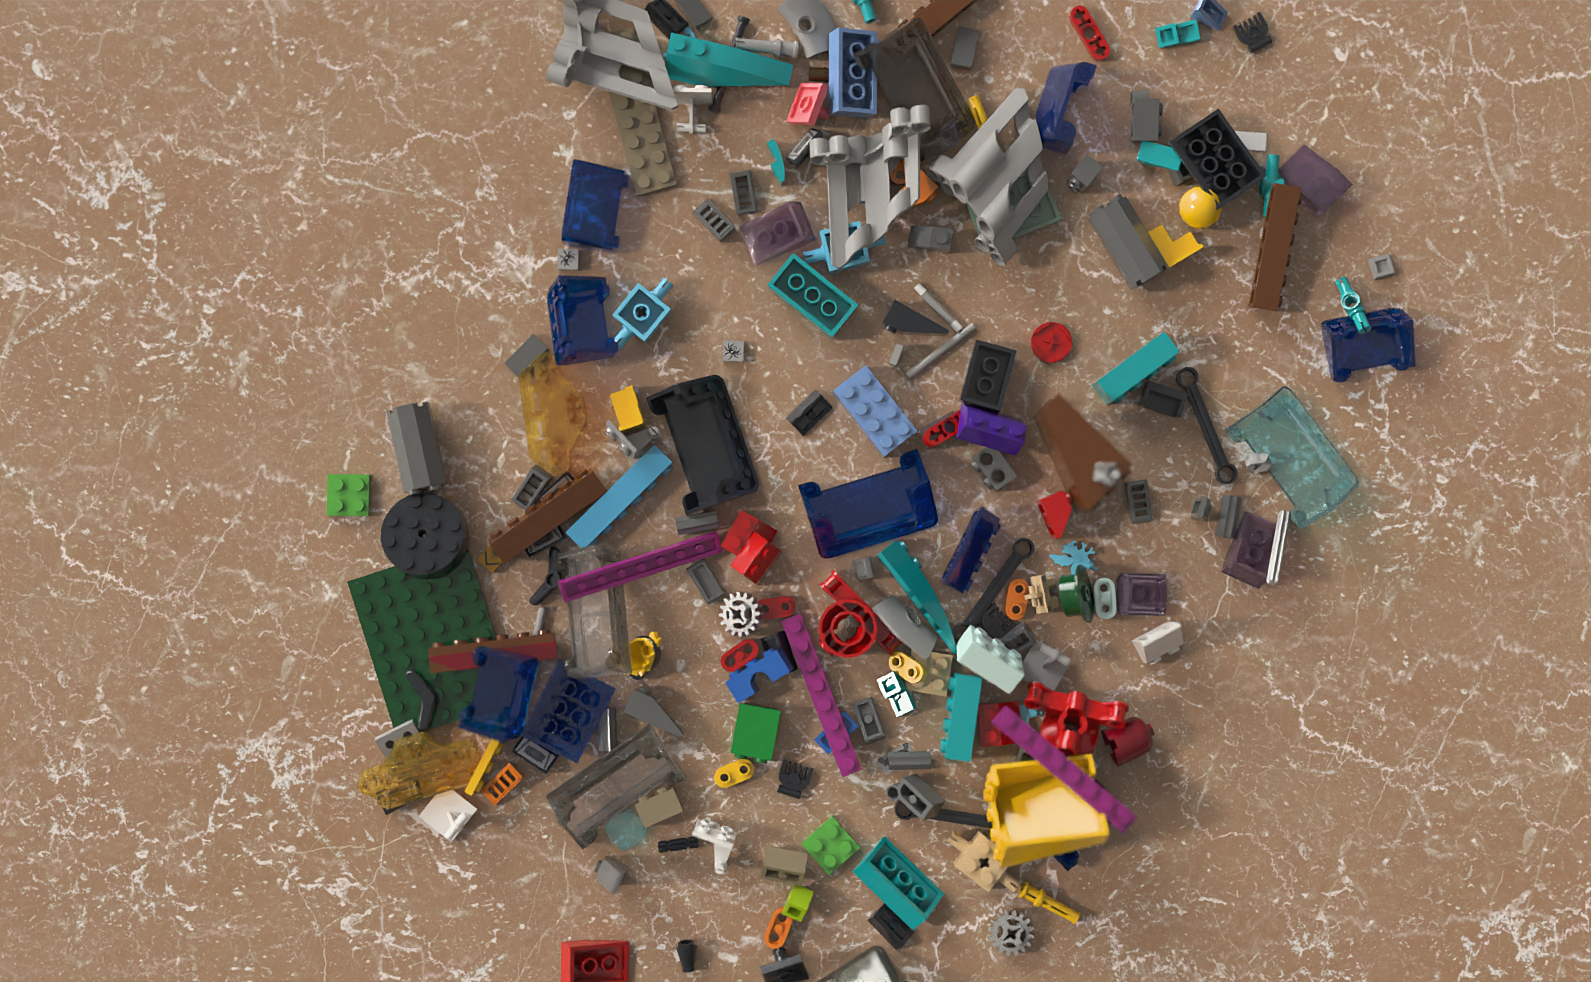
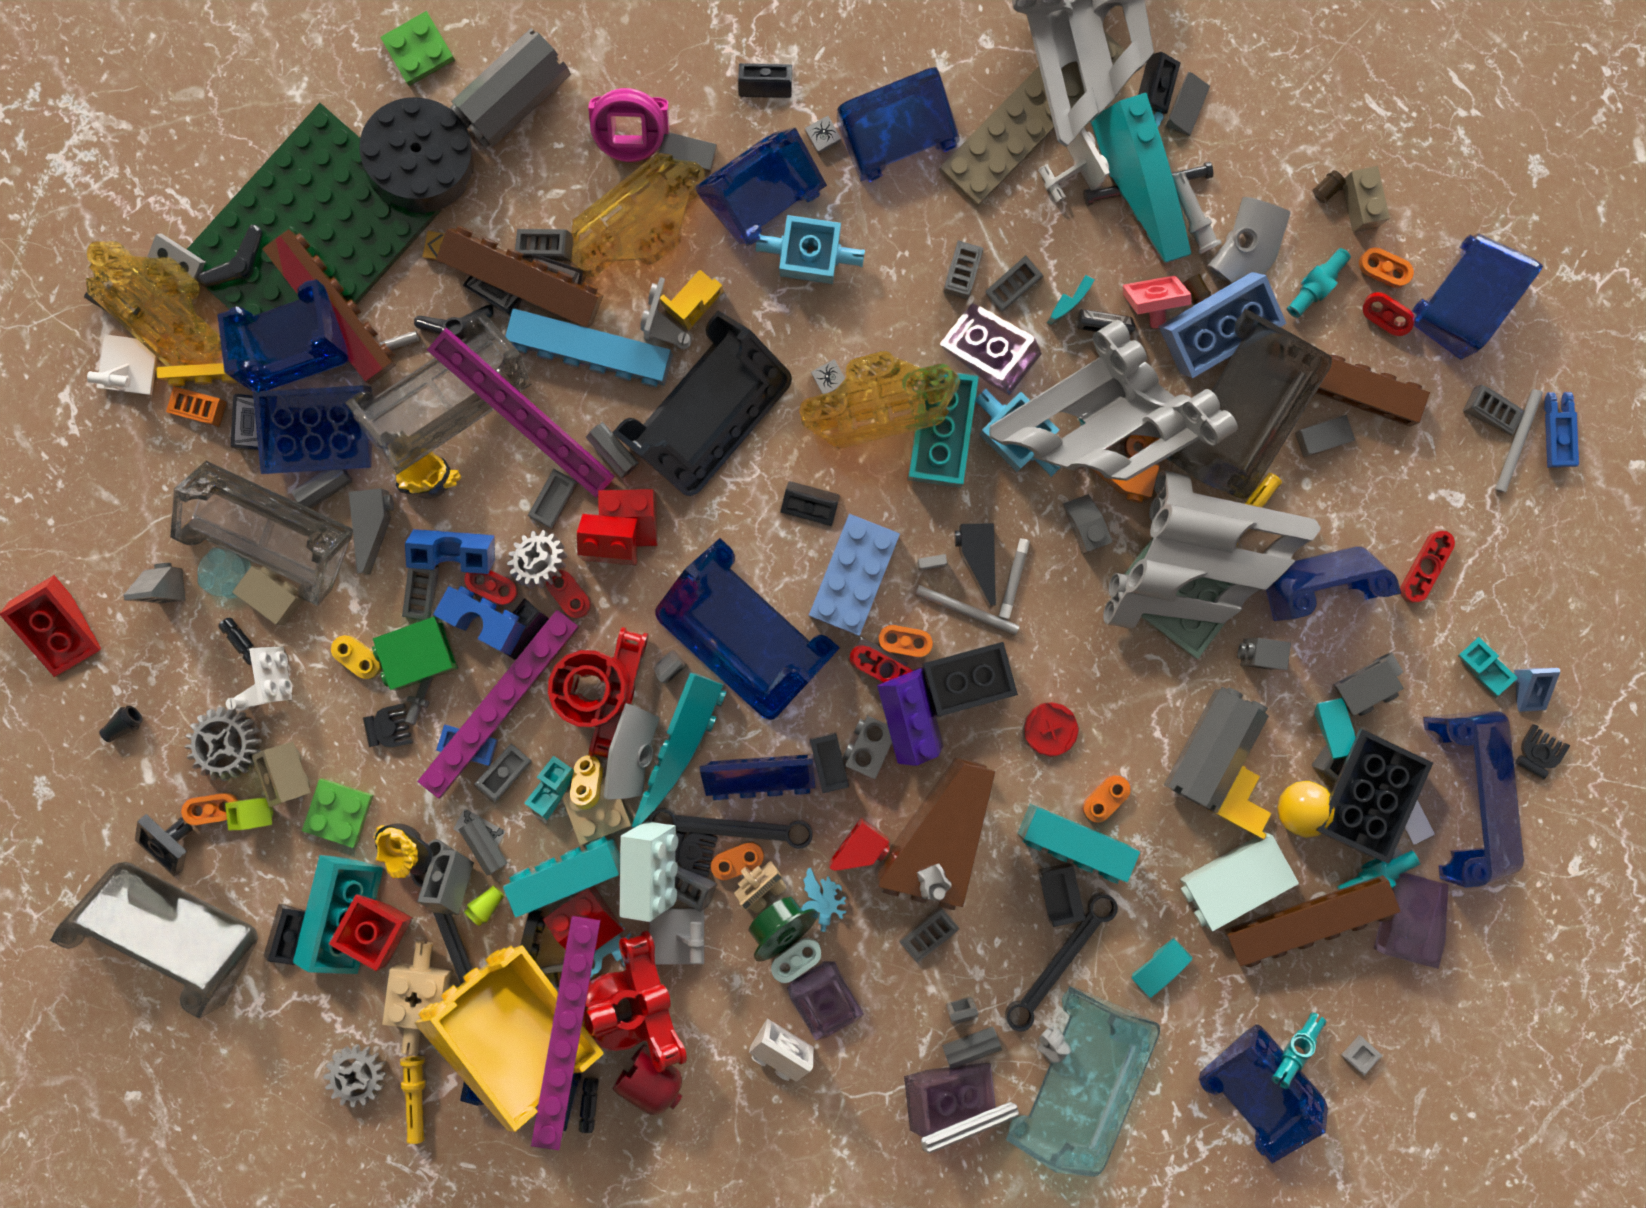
camera: 60 degrees right, 0 degrees up
(476, 376) = (628, 103): none -> dark pink piece
(508, 276) = (765, 80): none -> black slope
(692, 678) = (428, 548): none -> blue arch
(702, 692) = (412, 577): none -> dark grey slope
(748, 890) = (209, 760): none -> light grey gear
(765, 326) = (874, 394): none -> clear yellow connector
(788, 749) = (418, 702): none -> dark grey piece
(881, 814) = (402, 850): none -> yellow hair
(922, 866) = (370, 931): none -> red slope
(937, 404) = (905, 640): none -> orange plate
(949, 783) = (484, 905): none -> lime cone
(981, 756) = (533, 926): none -> black plate
(992, 501) = (829, 762): none -> black panel
(1115, 333) = (1104, 795): none -> orange plate
(1119, 790) = (588, 1105): none -> black axle
(1222, 280) = (1238, 882): none -> light aqua brick
(1249, 362) = (1162, 968): none -> teal slope
(1264, 80) = (1497, 797): none -> clear blue windscreen

